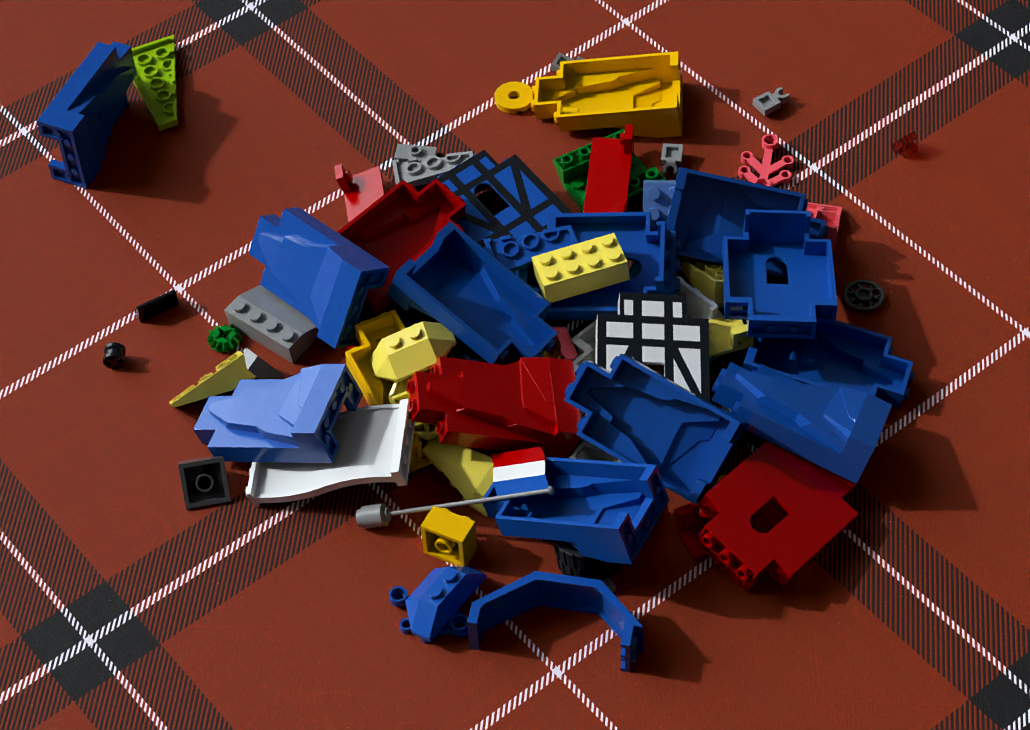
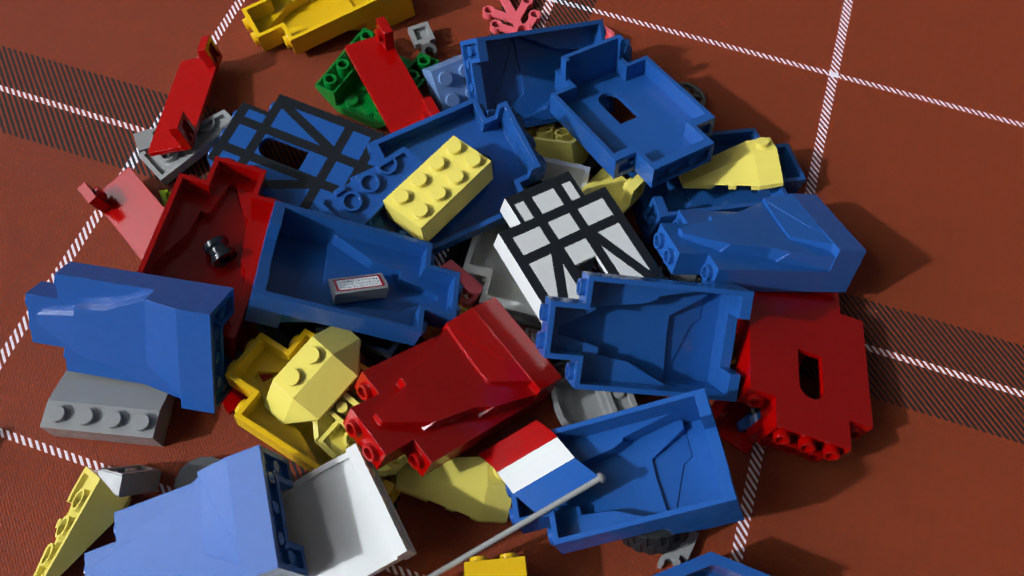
camera: 40 degrees left, 10 degrees up
(221, 344) = (59, 468): green gear -> none
(402, 247) = (220, 251): none -> black wheel
(452, 132) = (187, 101): none -> red bracket
(477, 310) = (358, 288): none -> light grey slope
(513, 89) = (232, 30): yellow tile -> none
(857, 361) = (746, 164): none -> light yellow wedge

